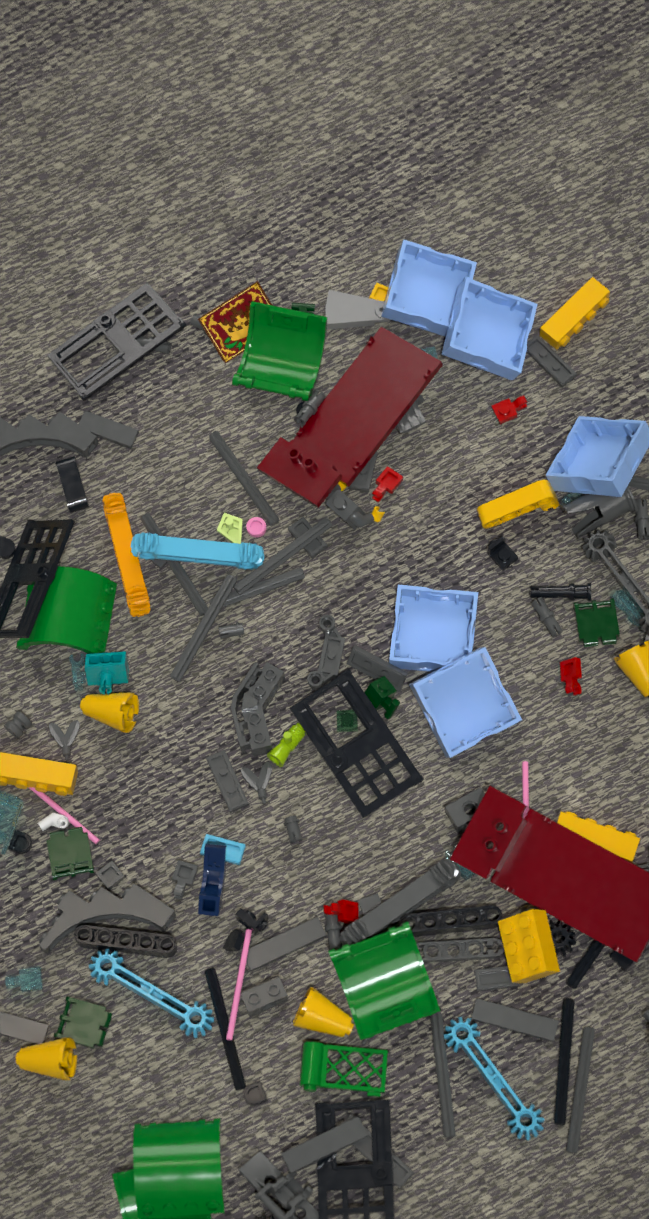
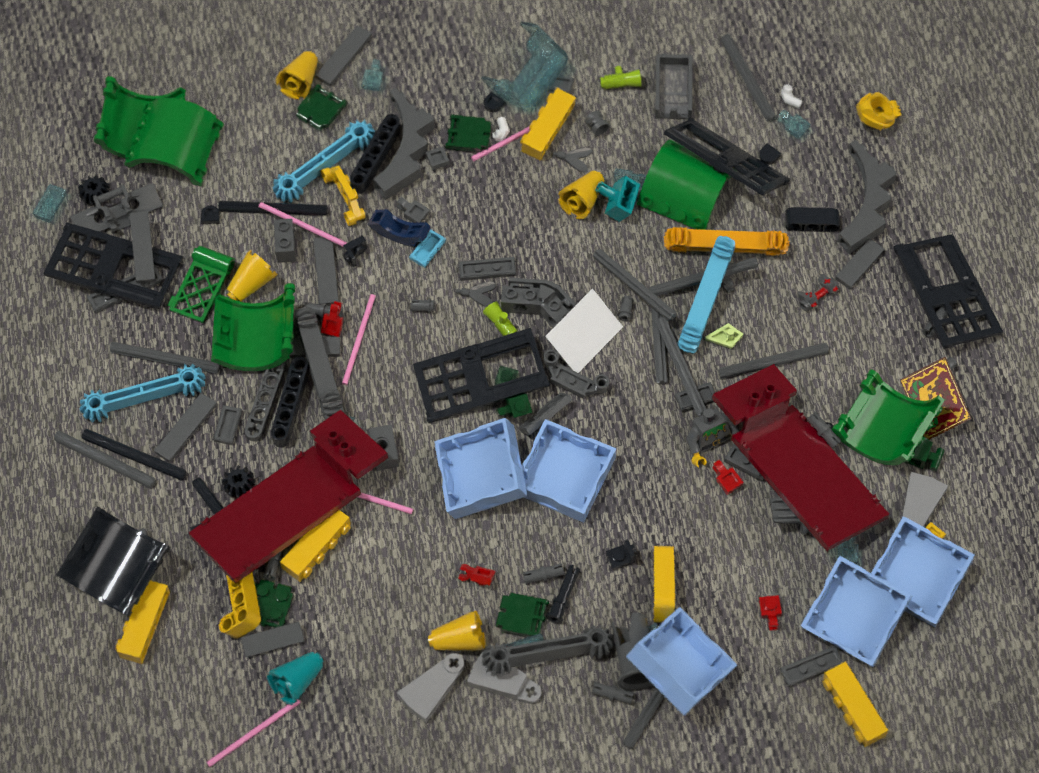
camera: 105 degrees right, 5 degrees down
(165, 462) = (810, 299): none -> dark grey piece
(176, 959) = (349, 195): none -> yellow plate
(234, 941) = (342, 233): black tile -> none
(256, 527) = (721, 357): bright pink tile -> none
(275, 657) = (584, 331): none -> white sticker
(351, 882) = (358, 339): none -> bright pink axle
(528, 946) = (238, 450): yellow brick -> none

